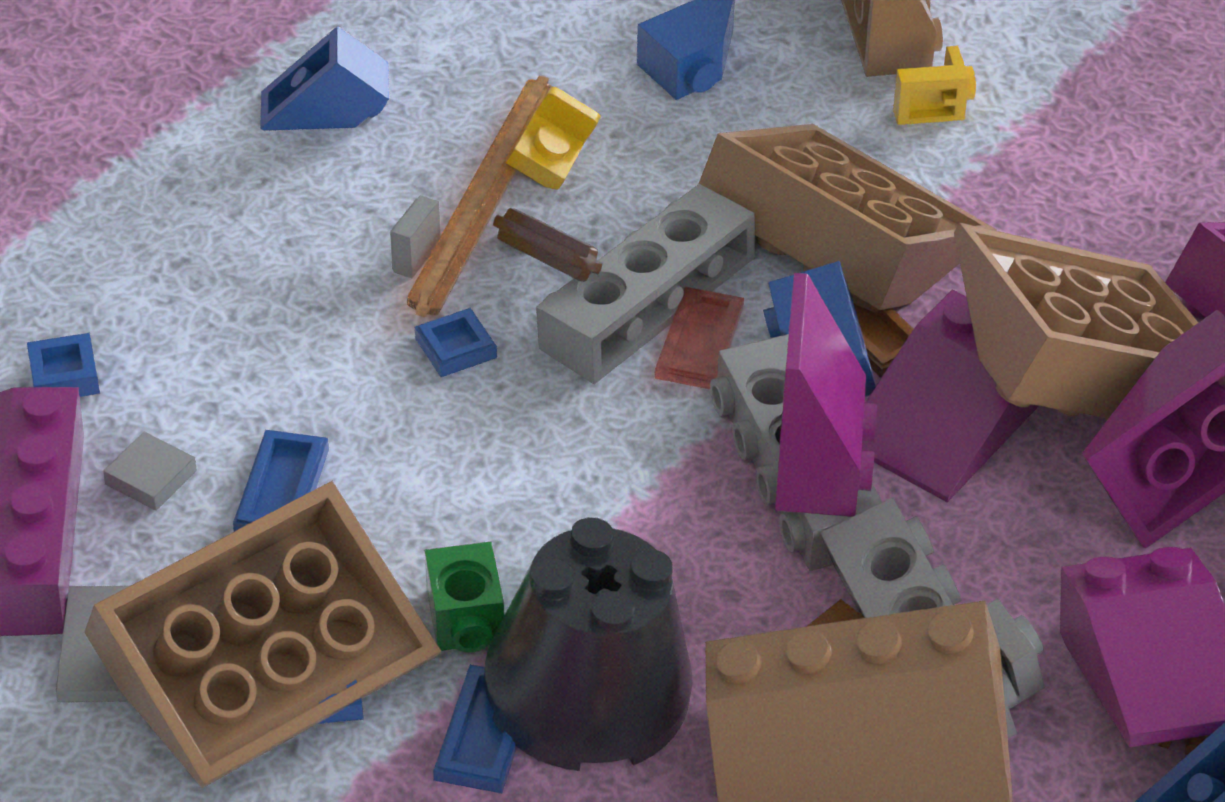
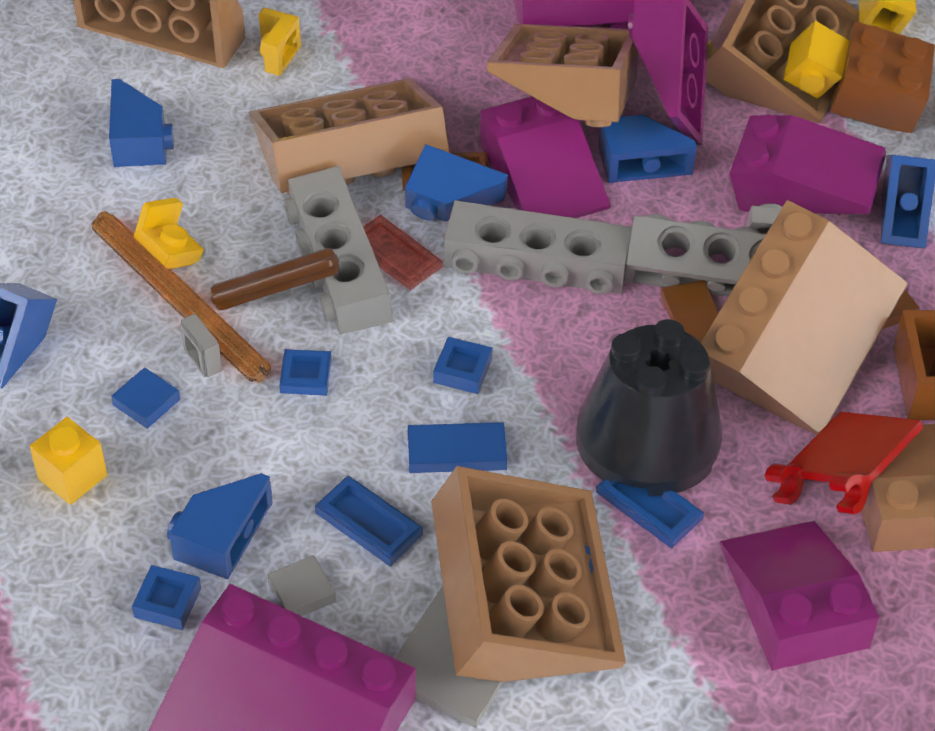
camera: 60 degrees left, 5 degrees up
(181, 209) = (68, 460): none -> yellow brick
(183, 364) = (220, 524): none -> blue slope
(323, 235) = (145, 397): none -> blue tile
(436, 507) = (452, 445): none -> blue tile
(464, 596) = (547, 445): green brick -> none
(561, 464) = (462, 365): none -> blue plate
(822, 414) = (572, 205): magenta slope -> none
(1050, 479) = (644, 150): none -> blue slope

